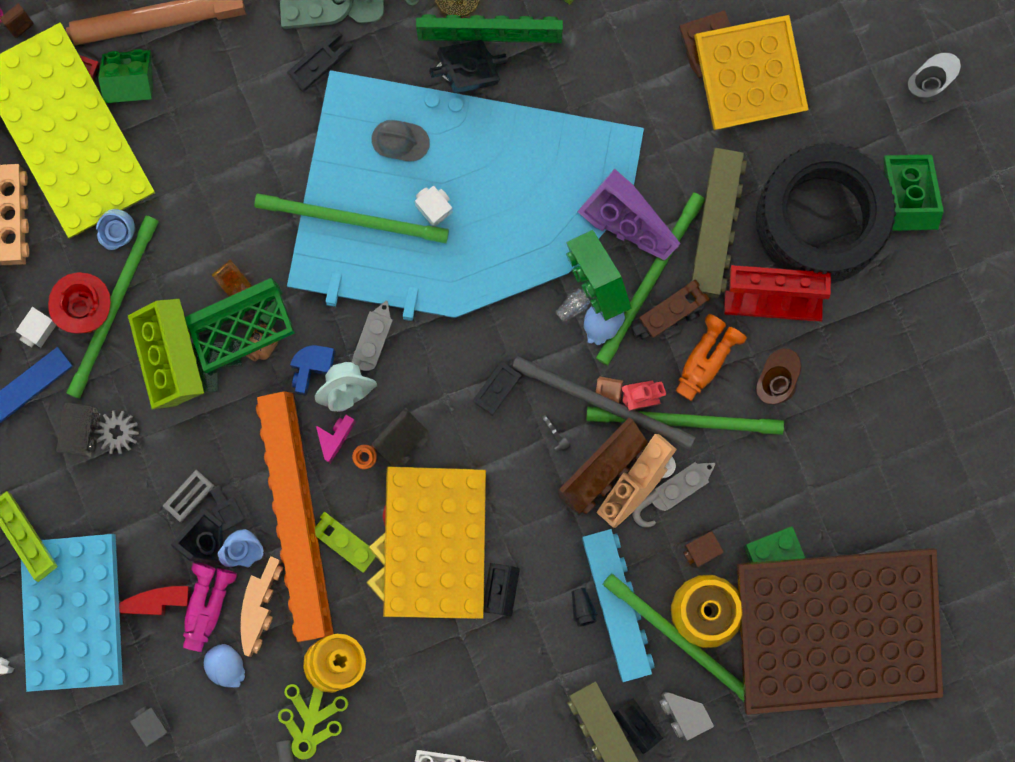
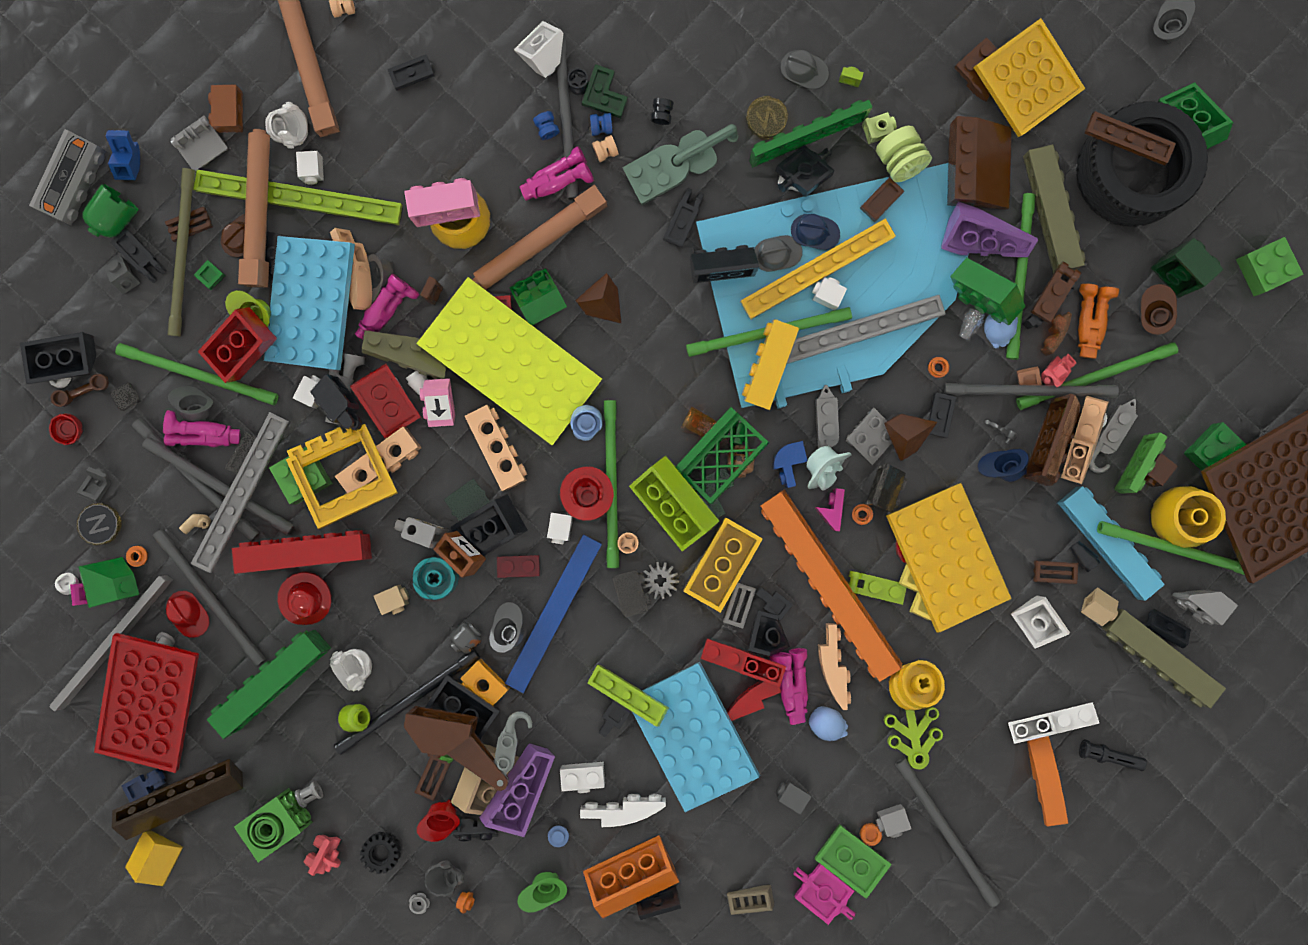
camera: 20 degrees left, 5 degrees up
(96, 374) = (628, 542): none -> light nougat wheel
(161, 555) = (743, 662): none -> red slope
(187, 442) = (722, 564): none -> yellow brick
(192, 109) = (601, 300): none -> reddish brown slope
(240, 549) = (801, 628): light blue hair -> none
(331, 250) = (771, 363): none -> yellow brick
(333, 125) = (723, 264): none -> black slope
(413, 378) = (870, 436): none -> light grey hinge
(433, 174) = (817, 269): none -> yellow plate
(451, 135) = (815, 231): none -> dark blue piece
(451, 392) = (908, 433): none -> reddish brown slope
(453, 259) = (866, 328): none -> light grey tile
(500, 656) = (1039, 621): none -> white slope
(501, 589) = (1013, 570): black slope -> none
(518, 328) = (944, 367): none -> orange plate
(526, 602) = (1038, 571): none -> reddish brown tile
(537, 132) = (882, 199): none -> reddish brown tile
(540, 470) = (1007, 465): none -> dark blue piece
(564, 62) = (874, 132): none -> yellowish green brick
(573, 669) = (1100, 607): none -> tan brick
(578, 93) = (903, 153): none -> yellowish green wheel
(660, 140) = (979, 163): none -> reddish brown slope
(665, 350) = (1059, 330): none -> clear orange slope
(686, 533) = (1141, 463): none -> bright green plate
(777, 293) = (1132, 244): red fence -> none
(813, 177) = (1130, 138): none -> reddish brown plate
(824, 343) = (1187, 267): none -> dark green brick
(921, 384) = (1269, 266): none -> bright green brick

